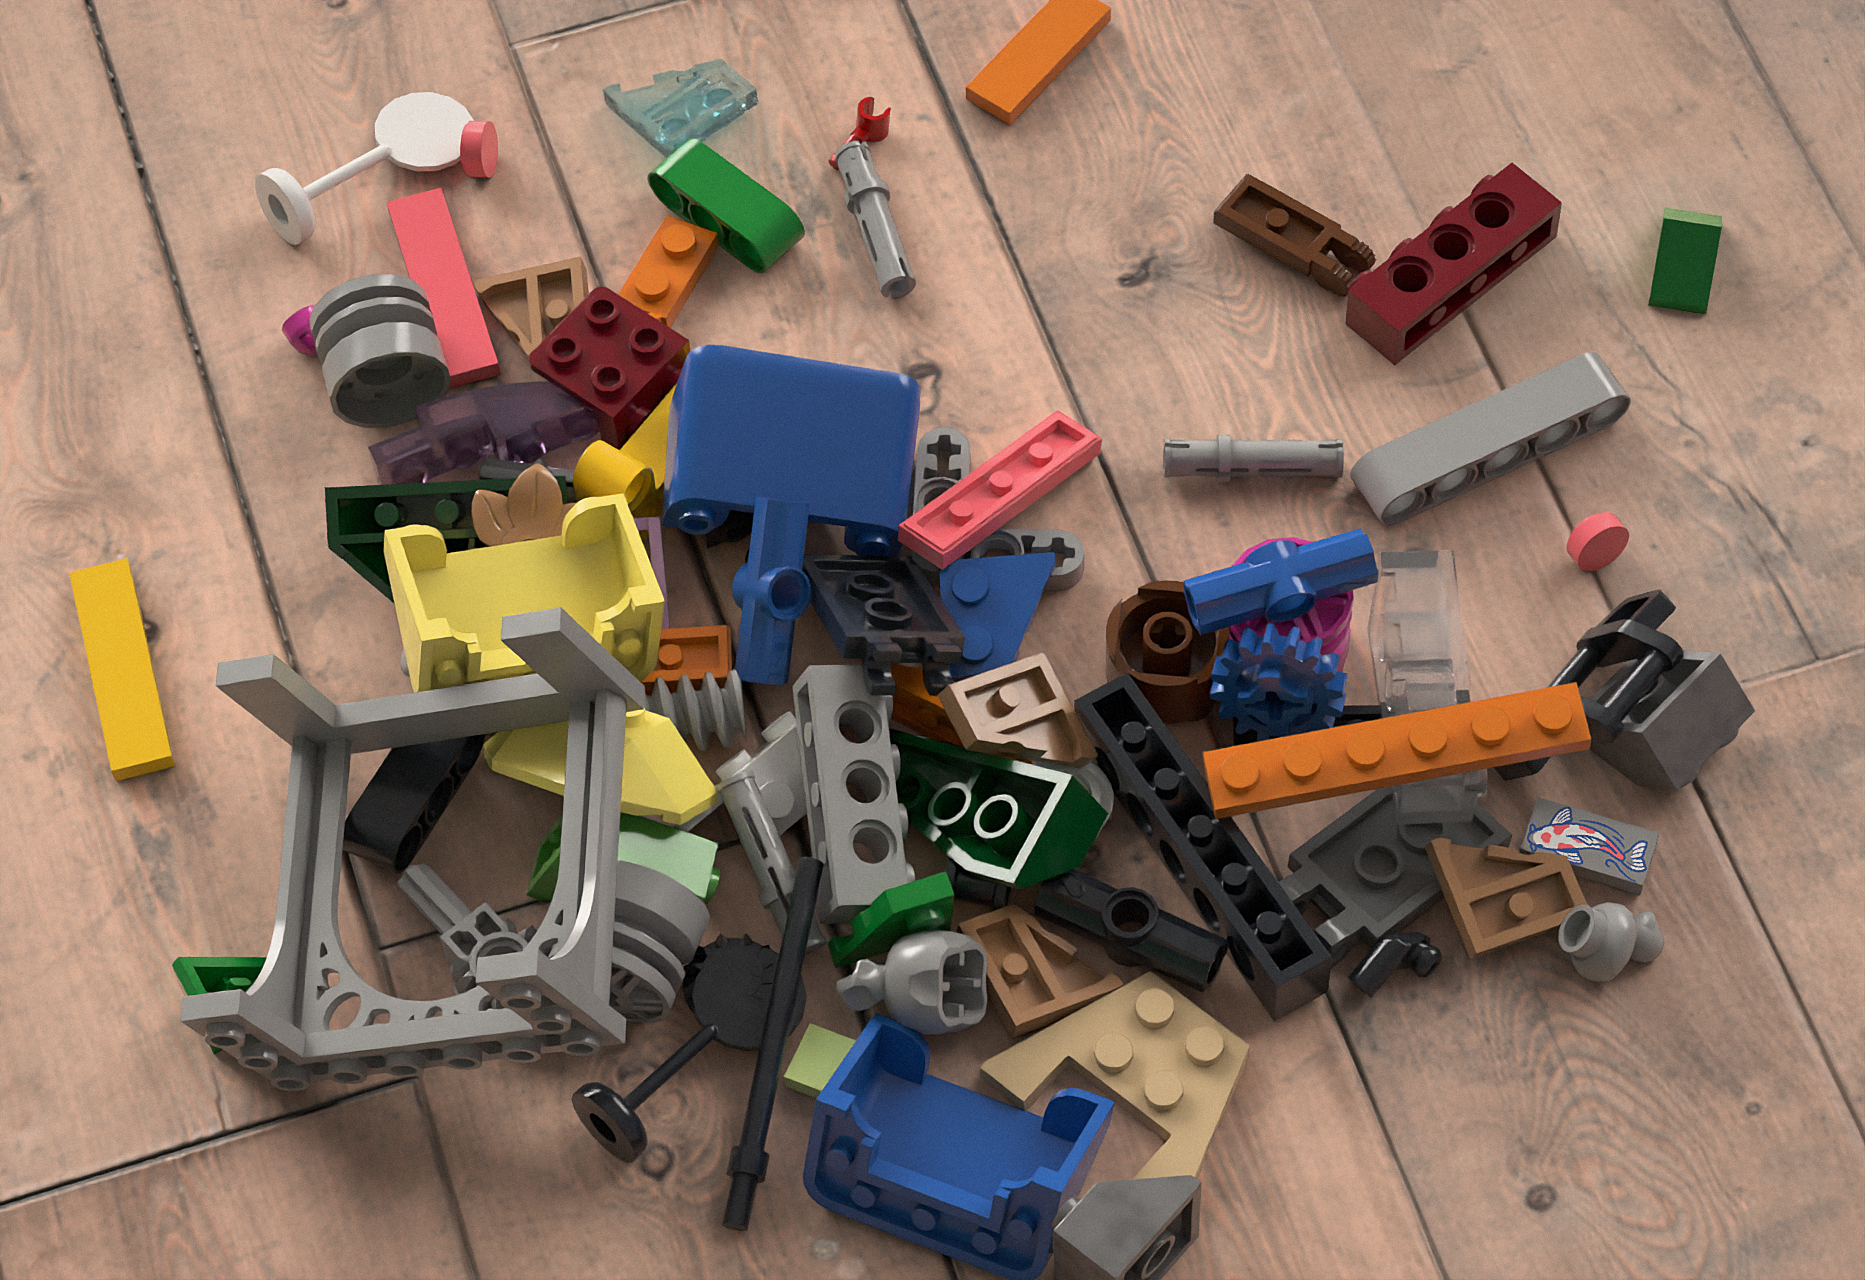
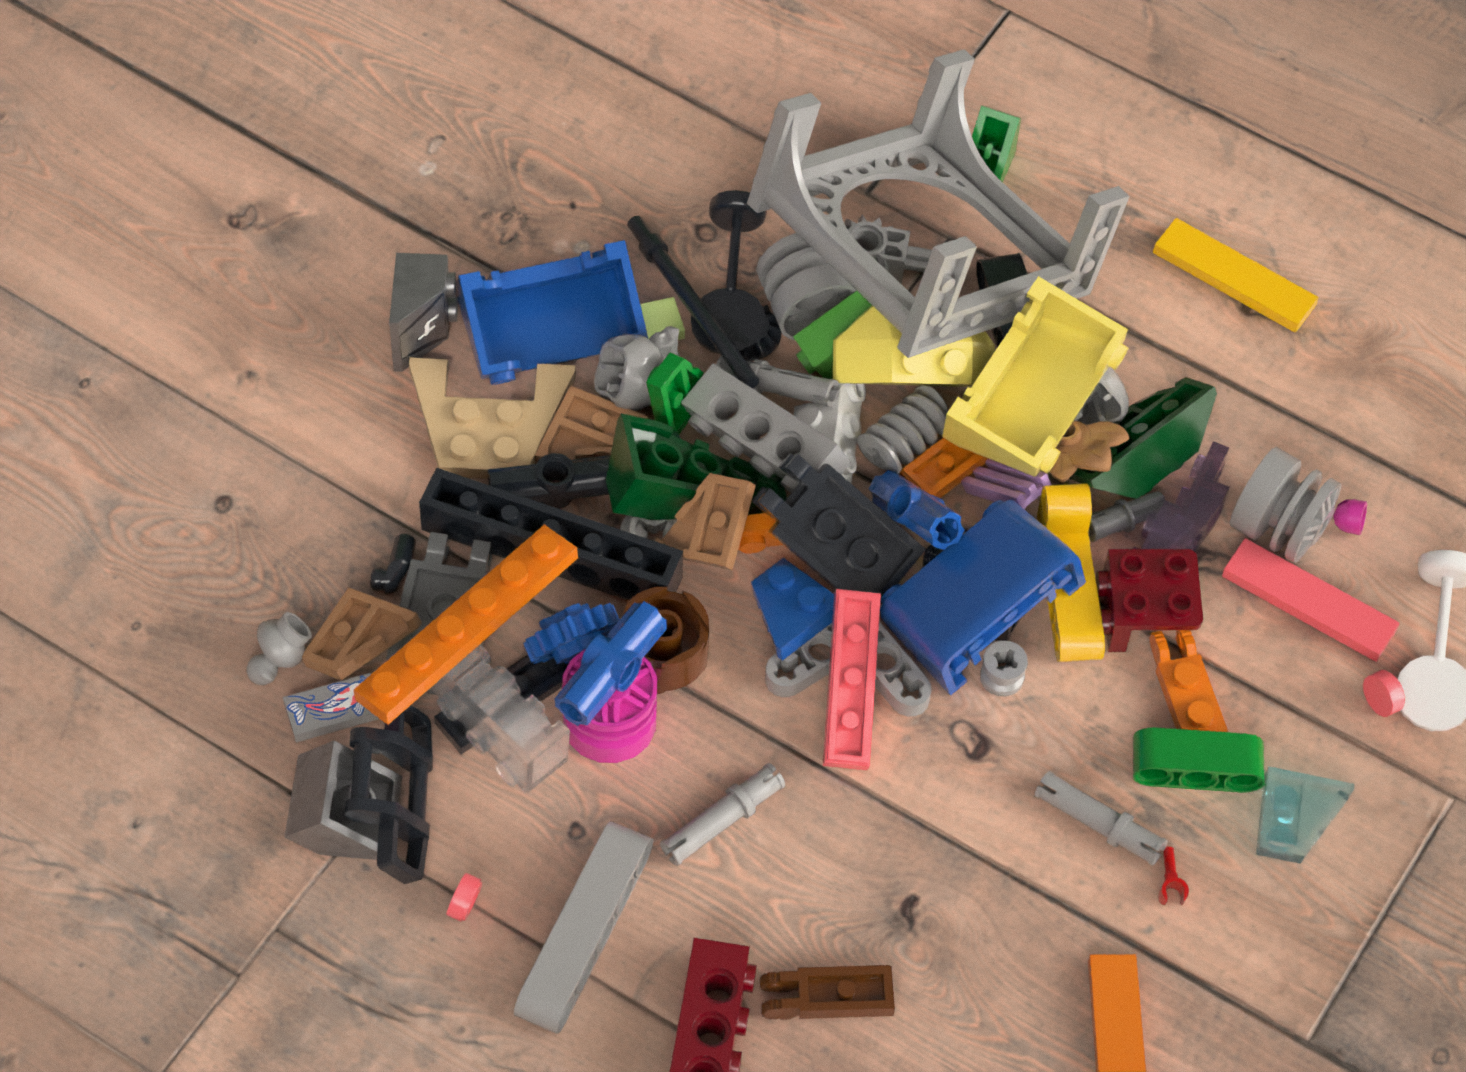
camera: 135 degrees right, 0 degrees up
(534, 299) = (1235, 621): medium nougat wing -> none

